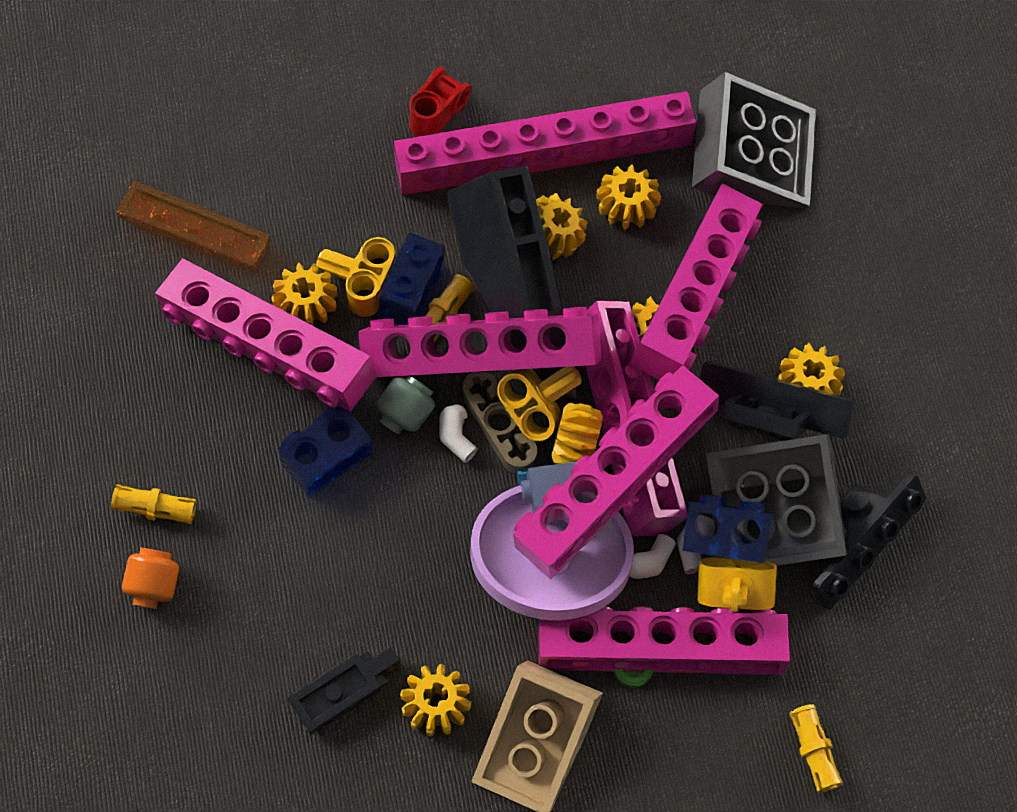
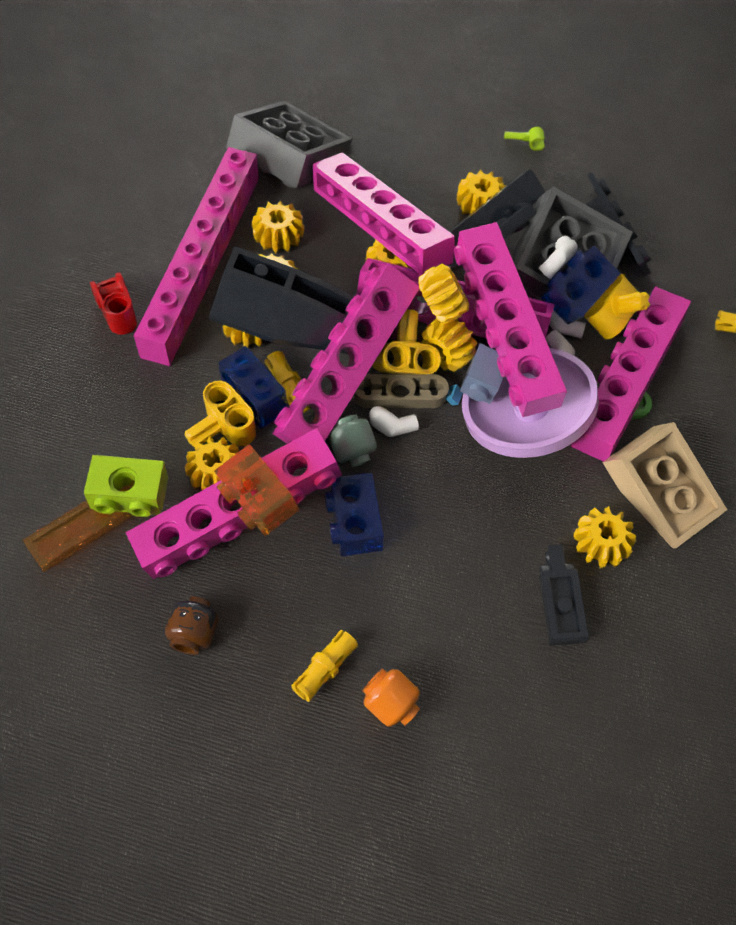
camera: 60 degrees left, 5 degrees down
(130, 369) = (191, 625): none -> reddish brown head
(221, 211) = (111, 474): none -> lime brick
(267, 339) = (248, 473): none -> clear orange brick
(602, 391) = (443, 293): none -> yellow gear
(748, 490) = (564, 252): none -> white arm
(945, 394) = (534, 136): none -> lime hand

